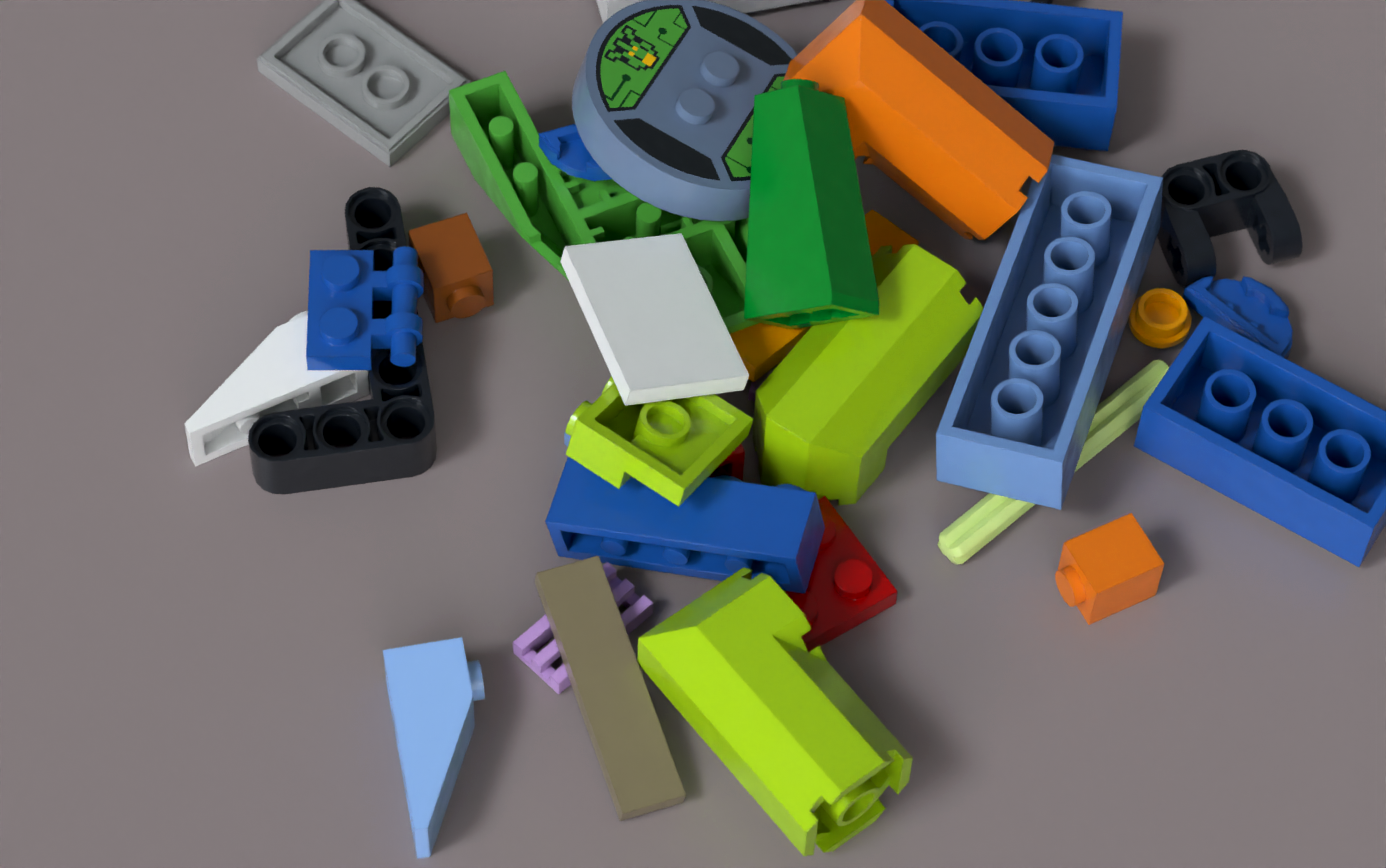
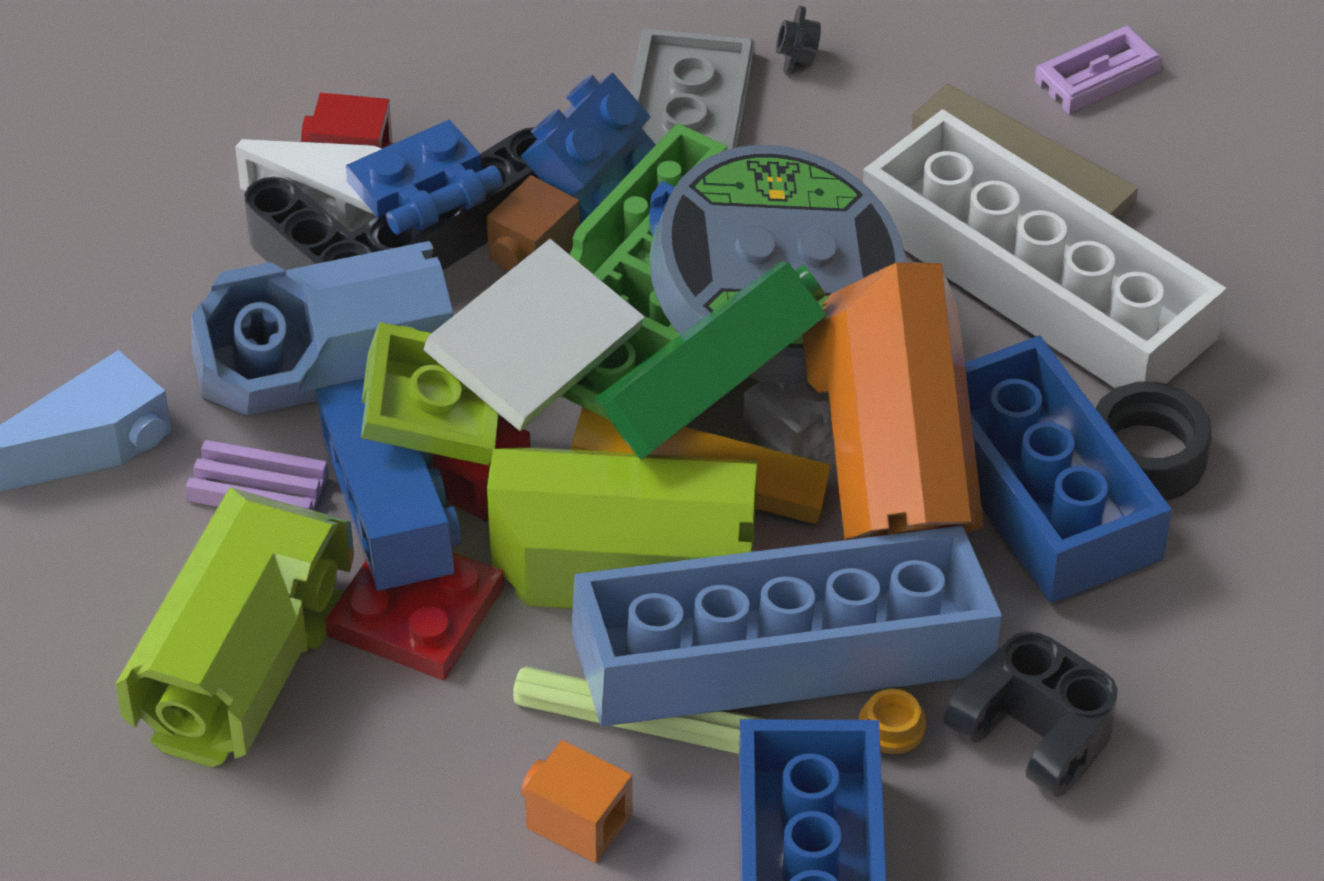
camera: 60 degrees right, 10 degrees down
(218, 339) = (349, 121): none -> red brick
(417, 167) = (591, 142): none -> blue plate
(484, 481) = (282, 333): none -> medium blue brick
(609, 688) = (150, 562): dark tan tile -> none
(1245, 309) = (950, 786): blue plate -> none

